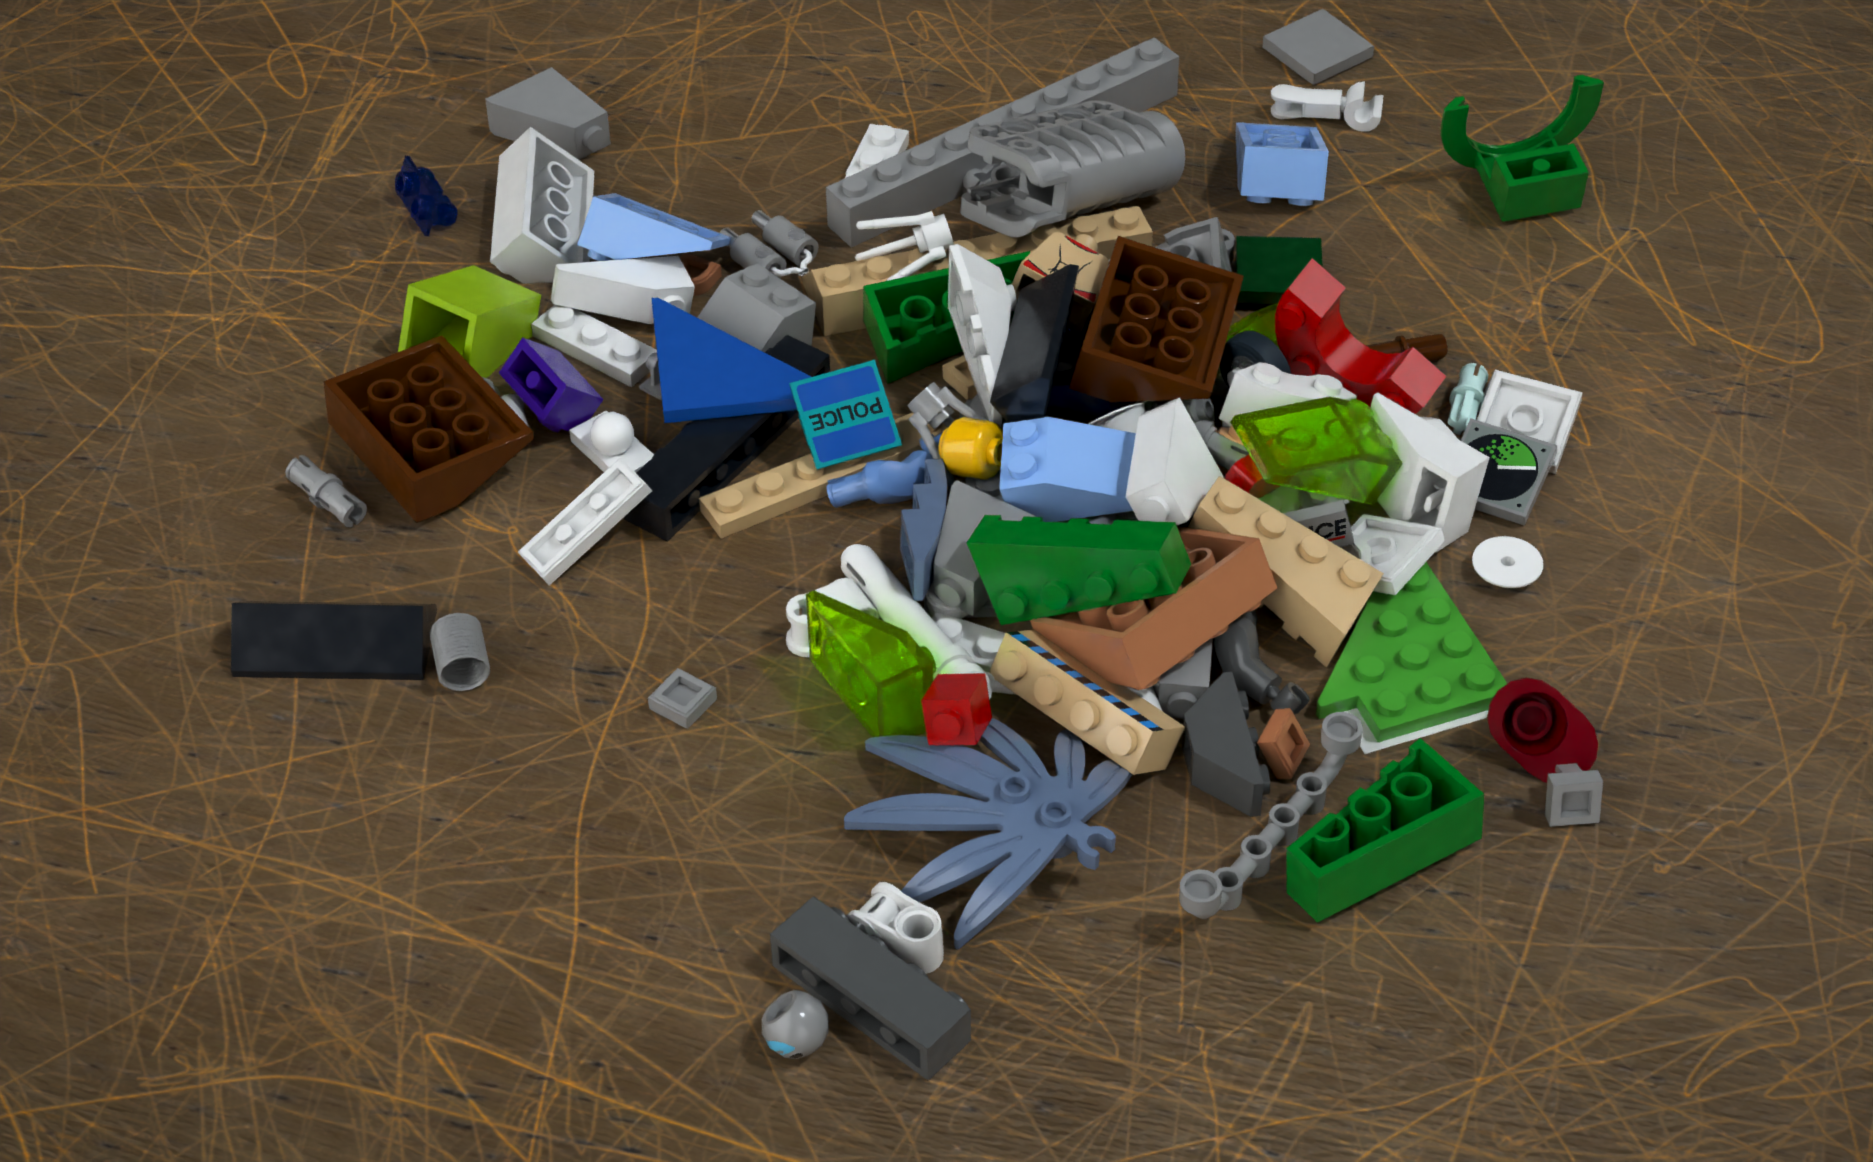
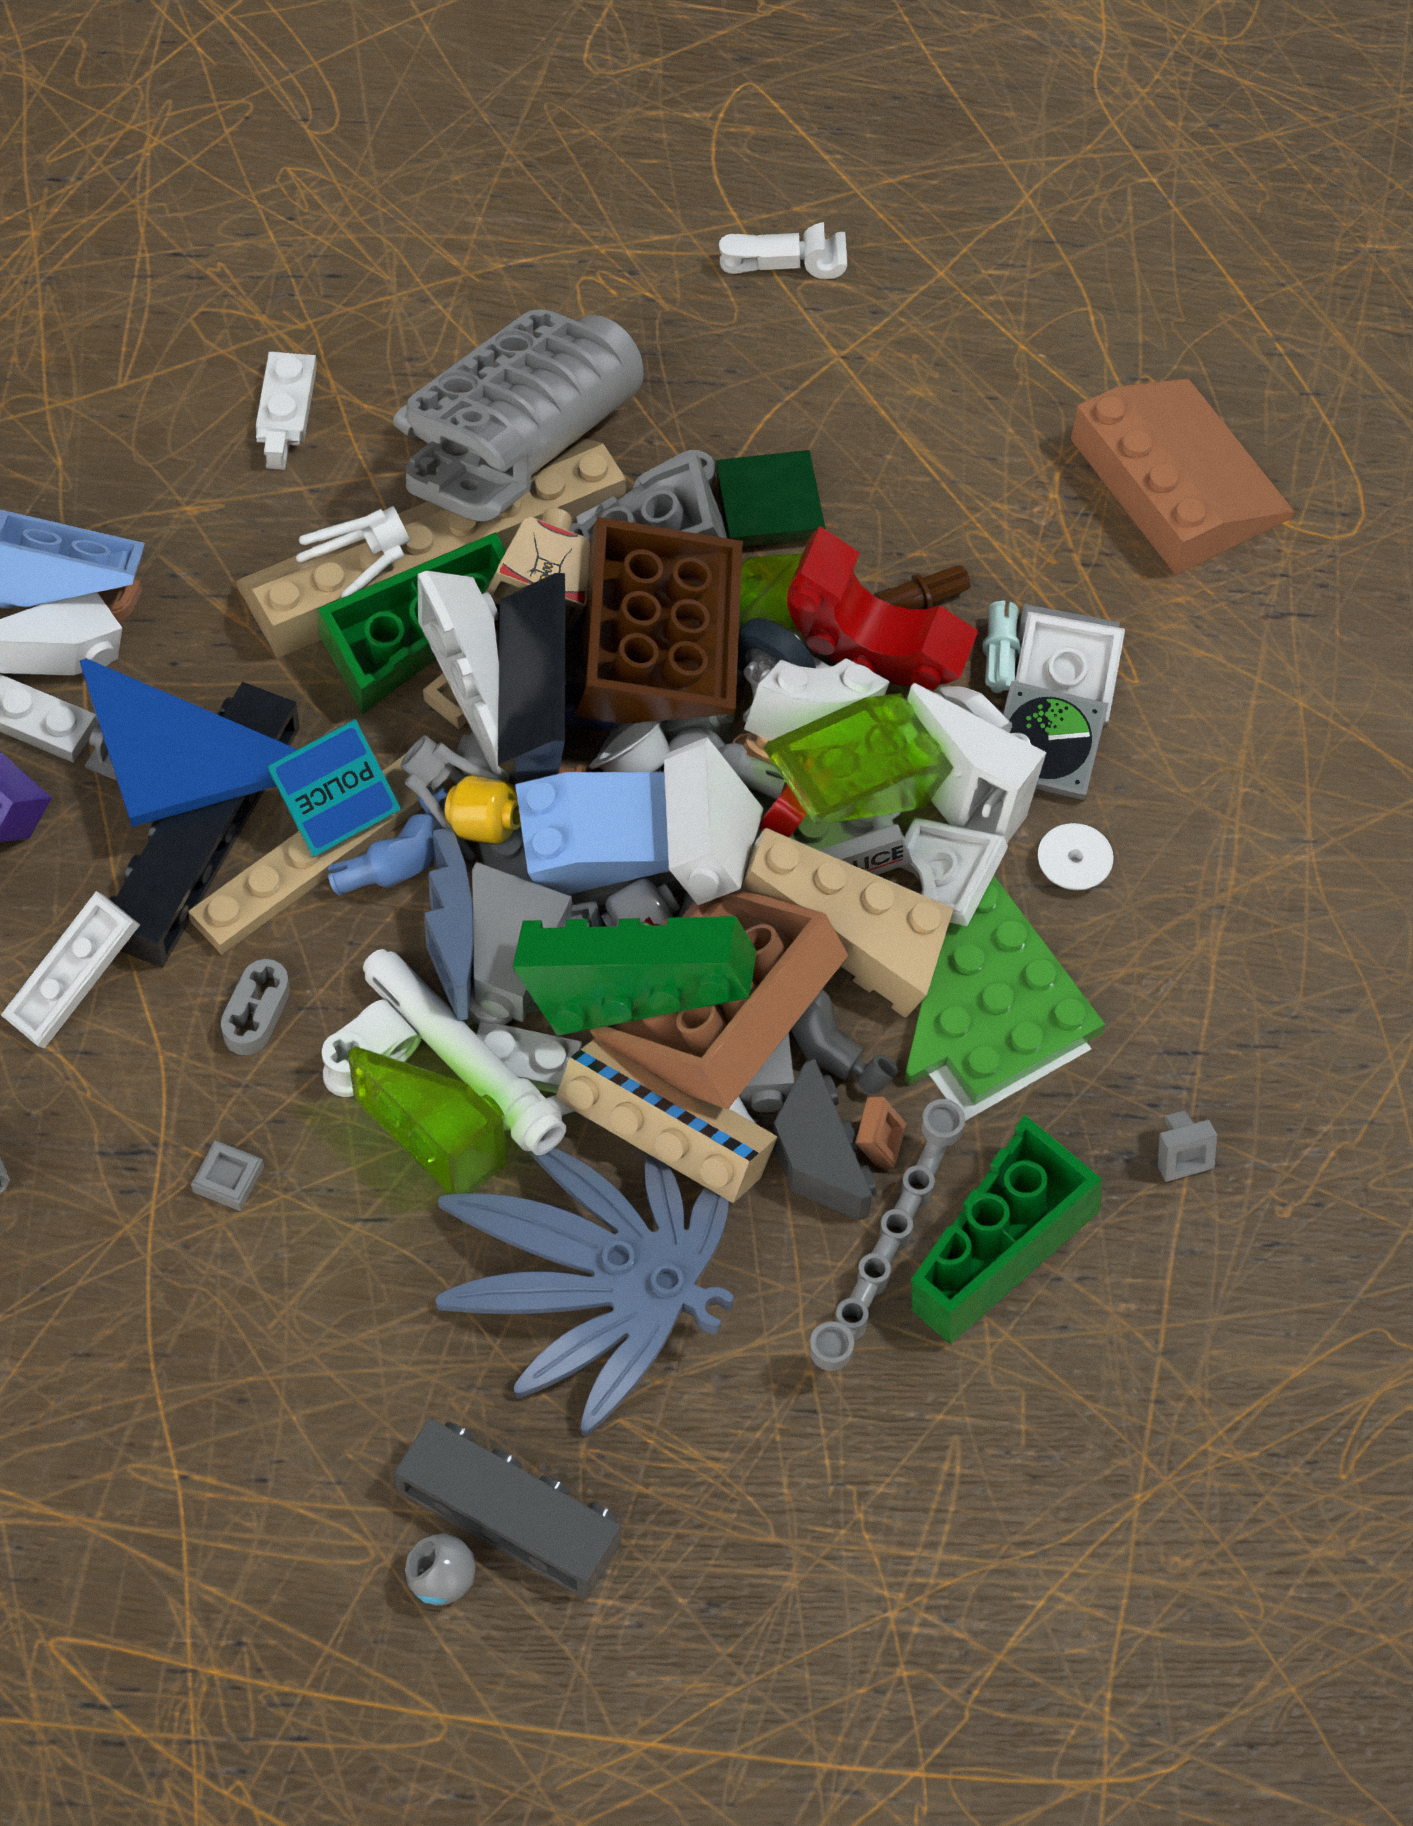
camera: 15 degrees left, 15 degrees up
(608, 439) = (75, 854): white tile -> none
(746, 580) = (245, 1002): none -> light grey beam
(760, 309) = (200, 653): light grey slope -> none
(780, 235) = (206, 533): light grey piece -> none
(903, 925) = (515, 1424): white piece -> none
(935, 169) = (362, 411): light grey brick -> none
(956, 709) = (536, 1165): red brick -> none
(1280, 163) = (745, 342): light blue slope -> none
(1318, 46) = (758, 164): light grey tile -> none
(1535, 173) = (1021, 320): green piece -> none
(1541, 728) = (1144, 1075): dark red piece -> none
(1650, 293) = (1177, 470): none -> nougat slope

